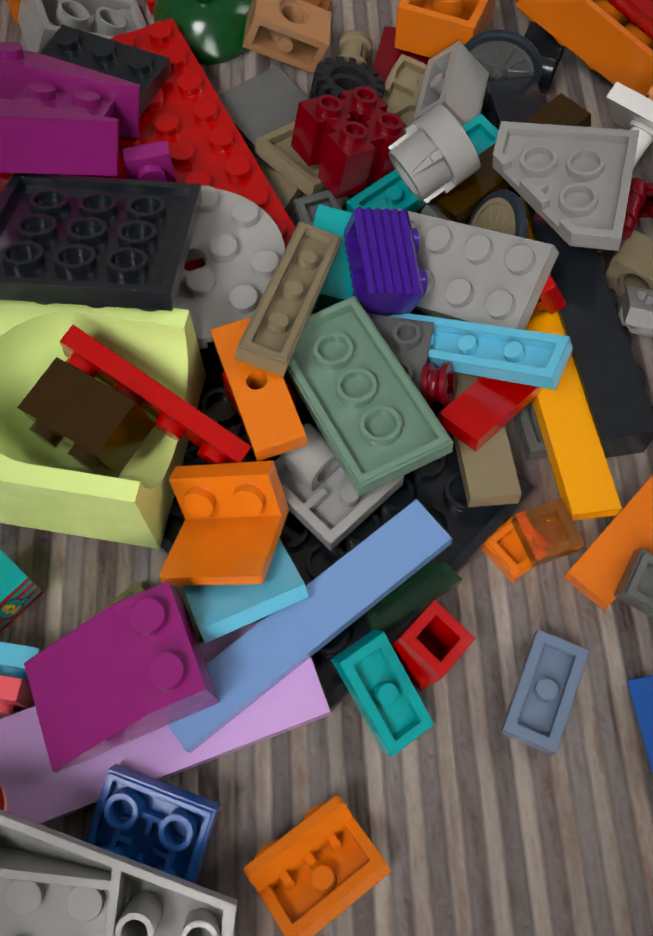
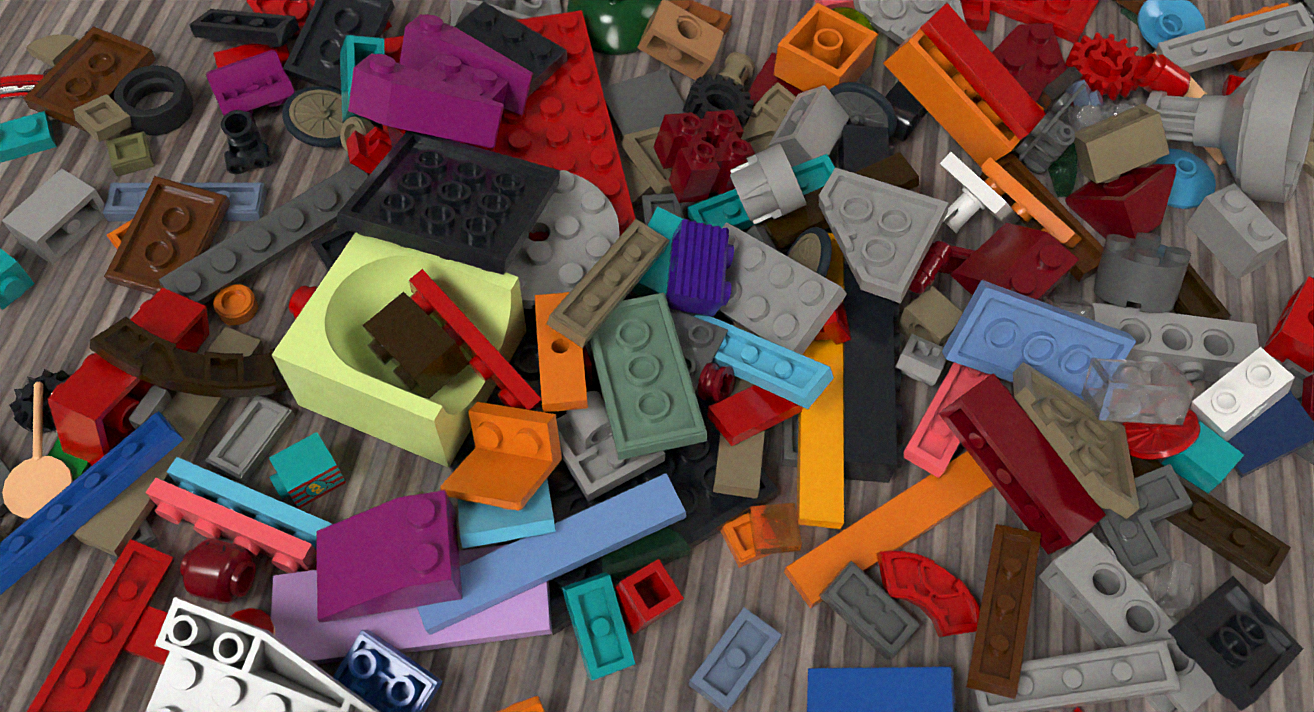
camera: 10 degrees right, 5 degrees down
(149, 162) = (524, 143): magenta plate -> none

